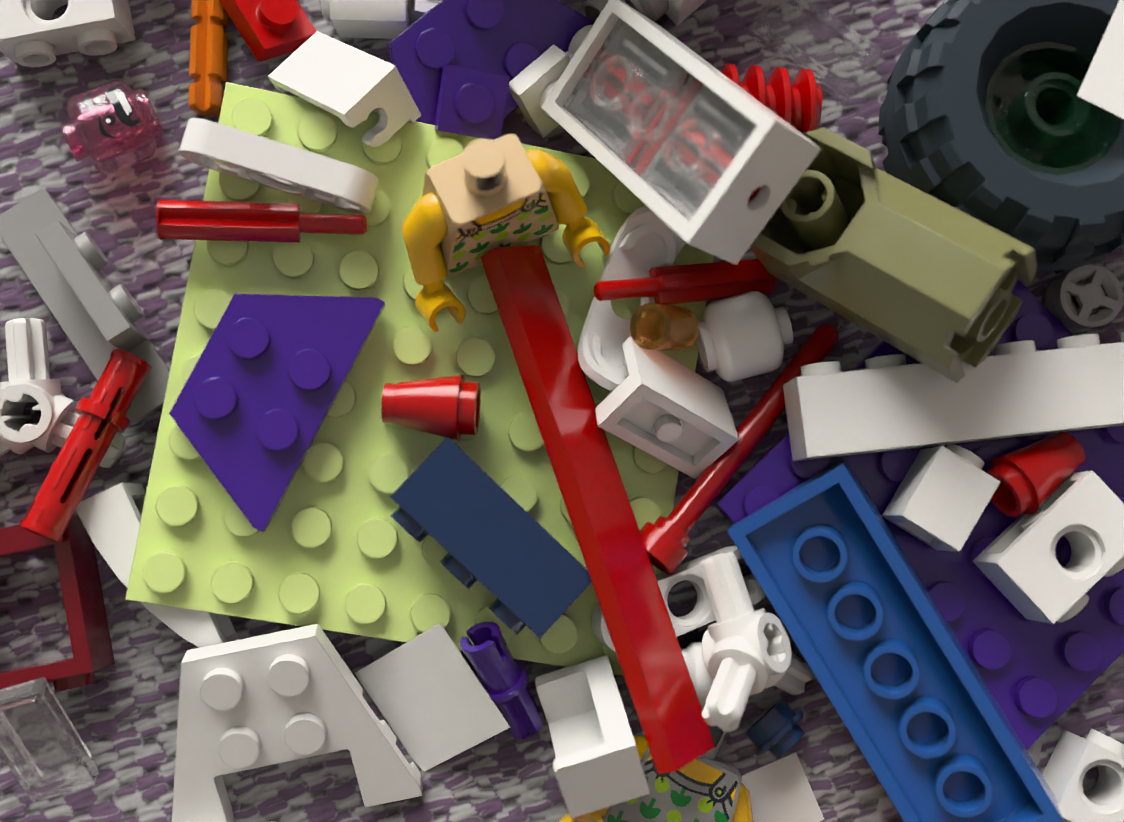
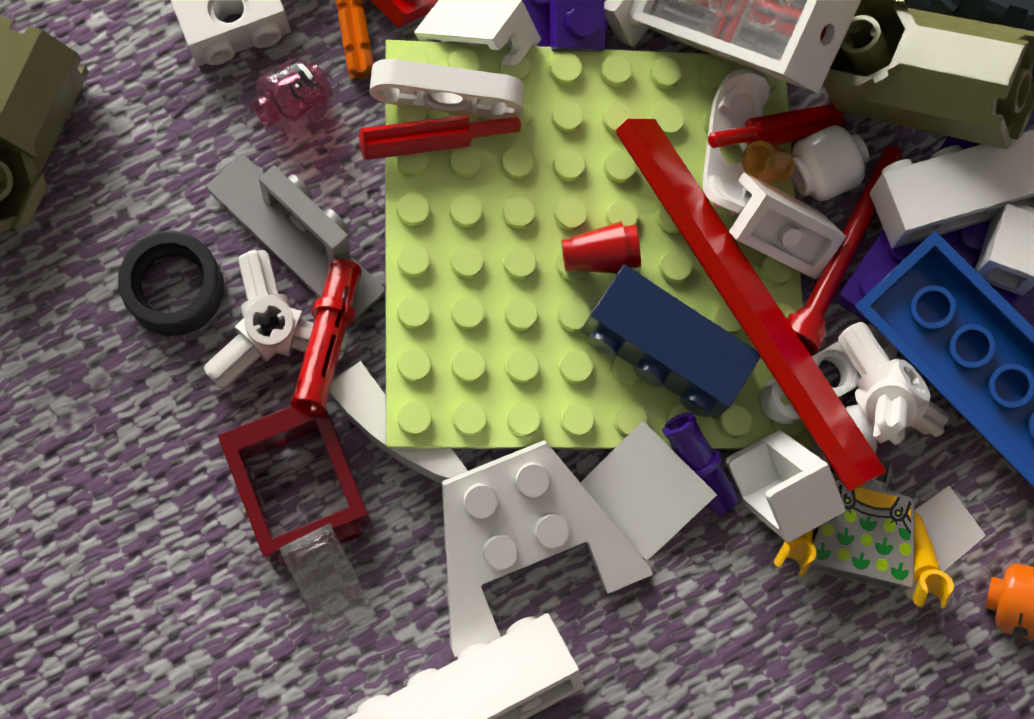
camera: 10 degrees left, 10 degrees down
(269, 388) = (471, 259): dark purple wing -> none
(488, 201) = (614, 83): torso -> none
(776, 730) = (929, 464): dark blue plate -> none

